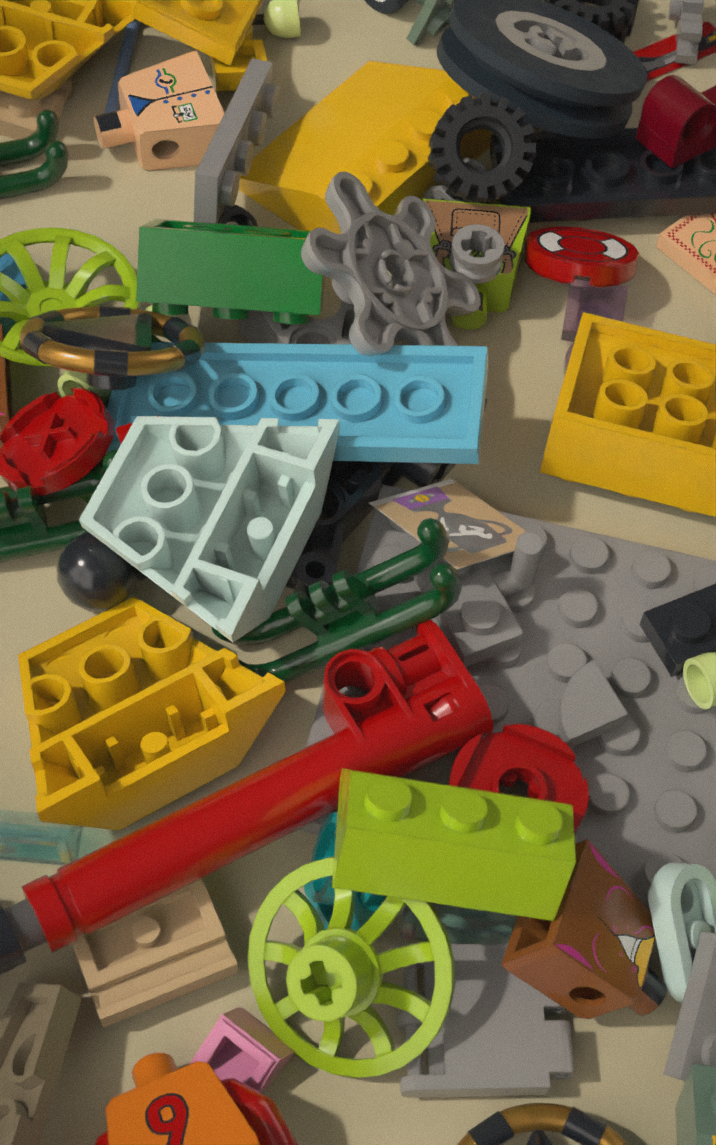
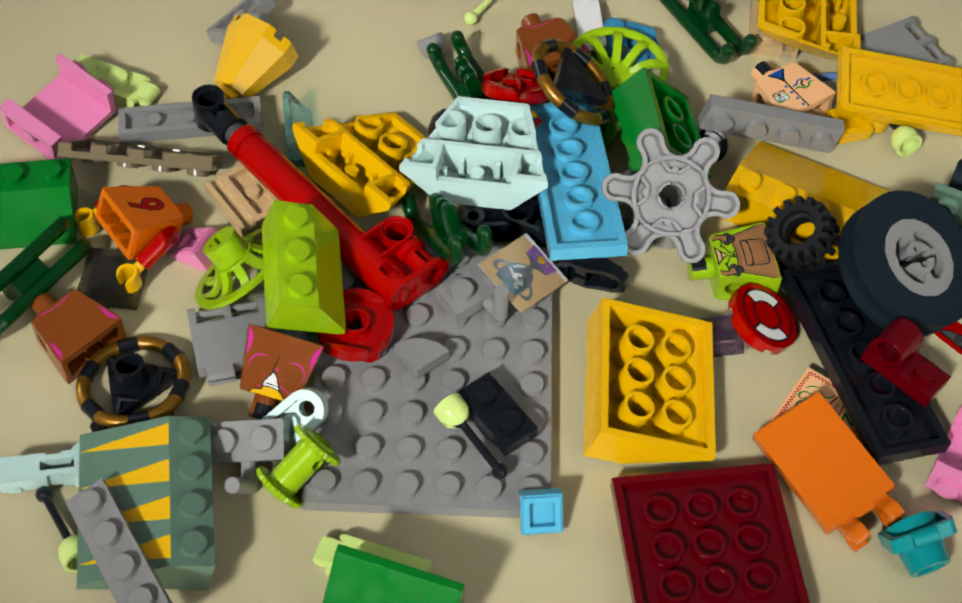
camera: 80 degrees right, 5 degrees down
(482, 239) = (717, 257): light grey bush -> none

